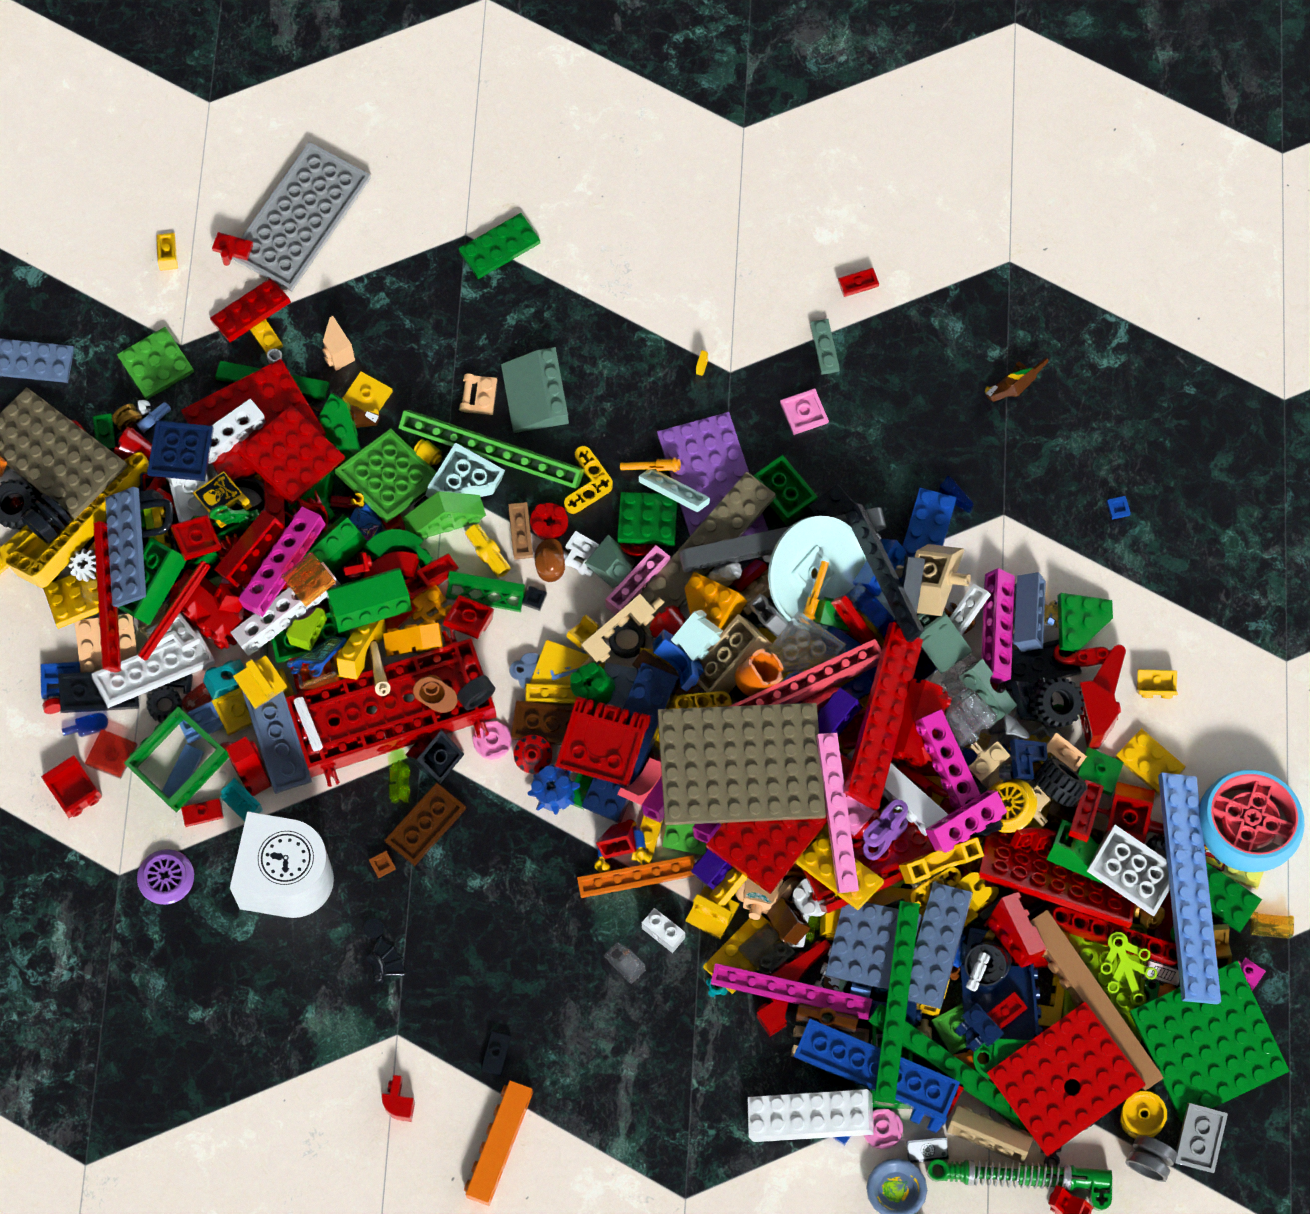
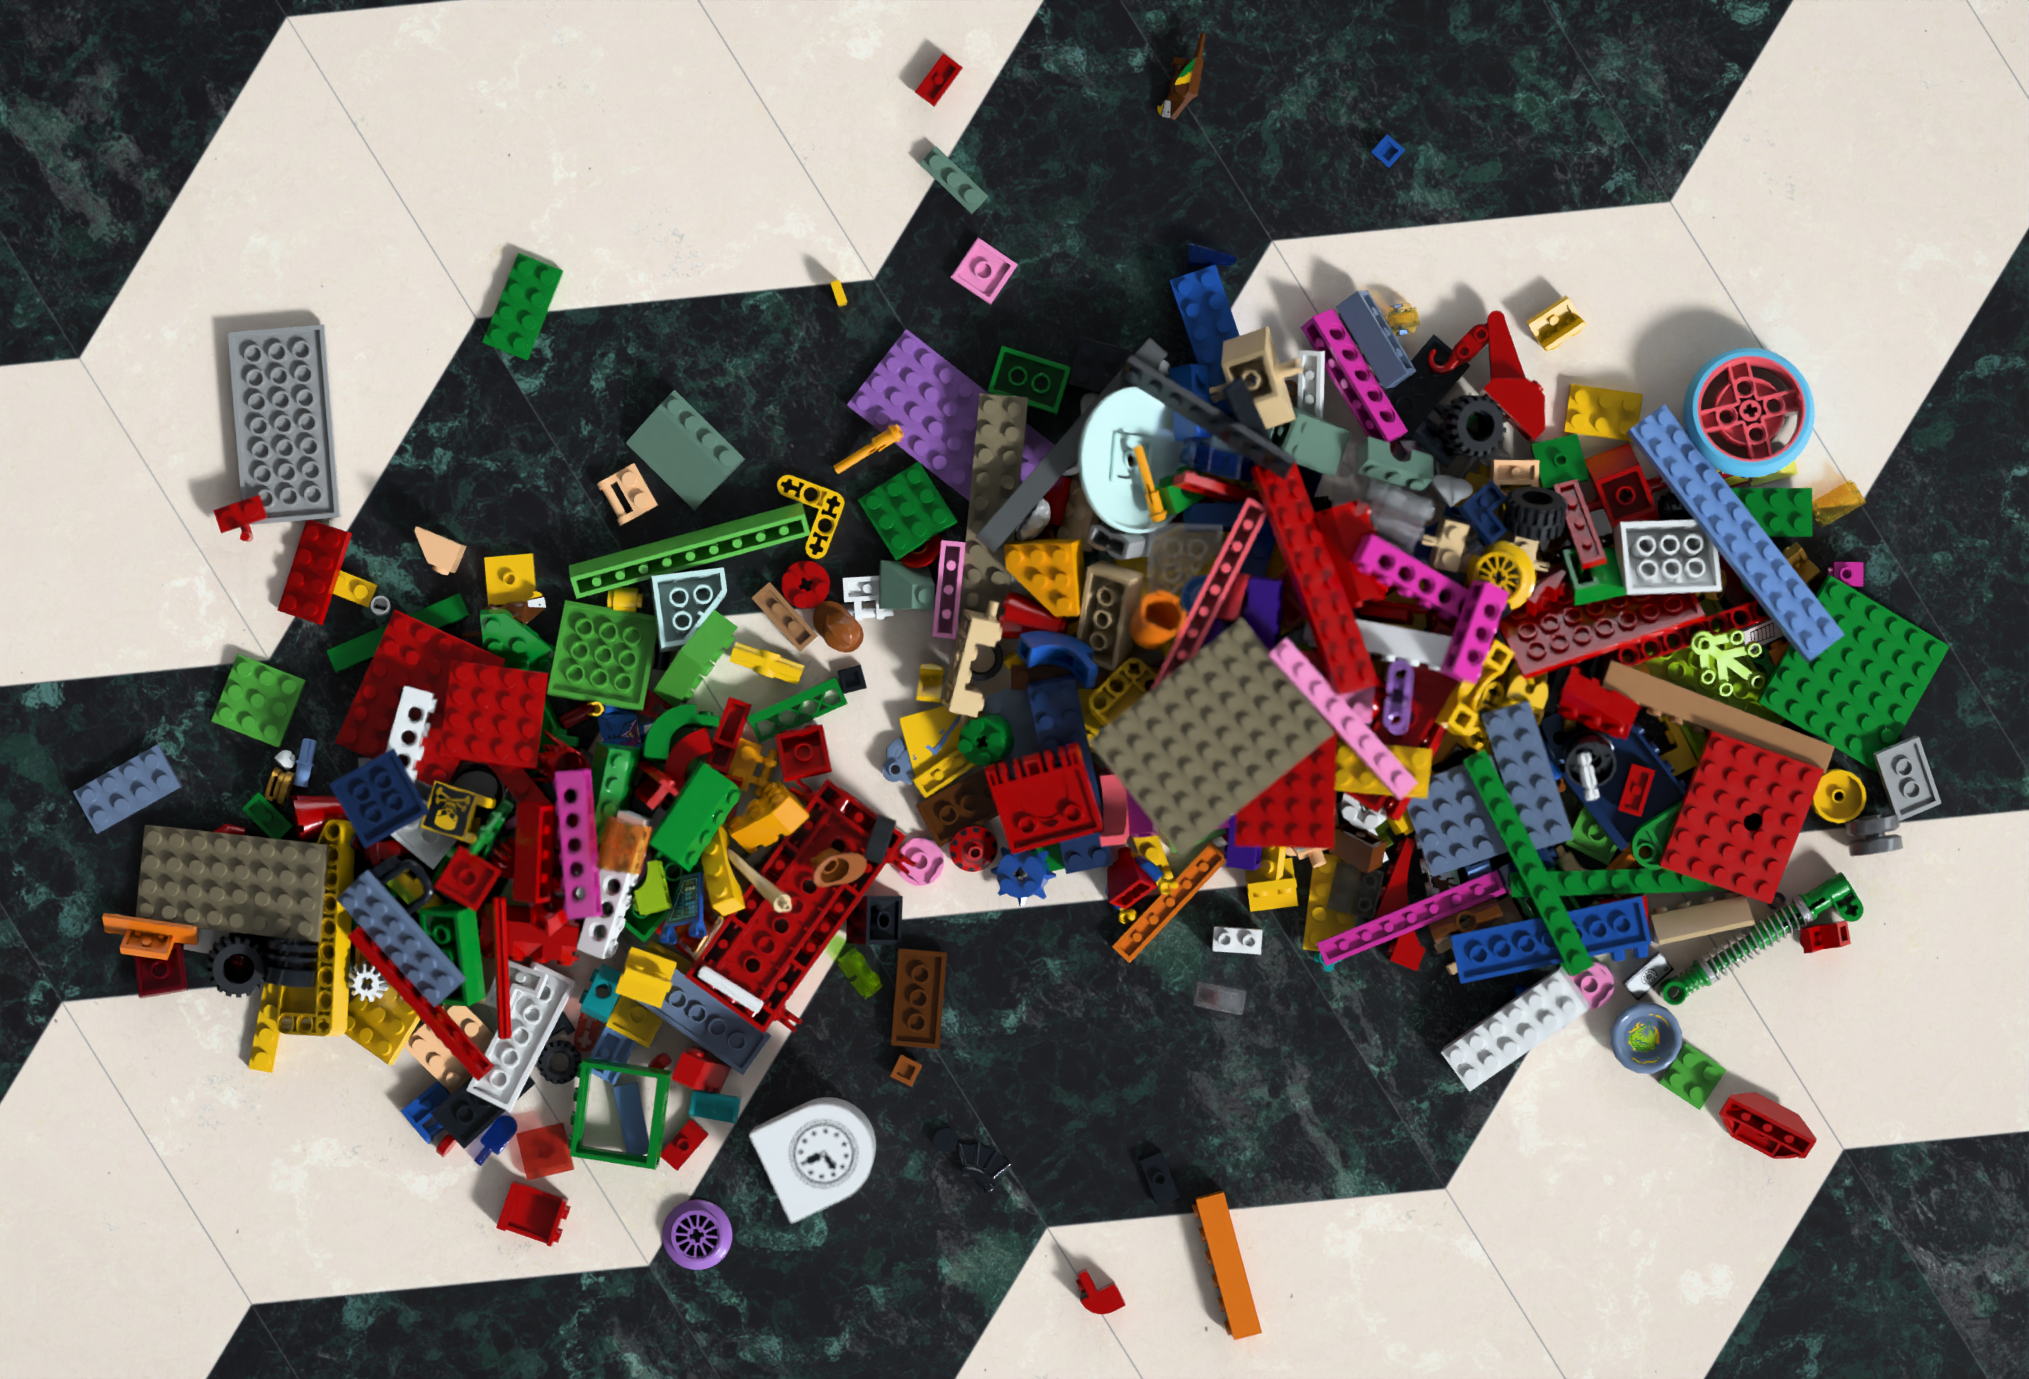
camera: 35 degrees left, 20 degrees up
(167, 251) = (170, 565): yellow slope -> none
(674, 489) = (914, 462): light aqua plate -> none
(697, 635) = (1063, 620): light aqua hips -> none
(982, 1026) = (1623, 822): dark blue plate -> none
(1081, 619) = (1434, 309): green plate -> none

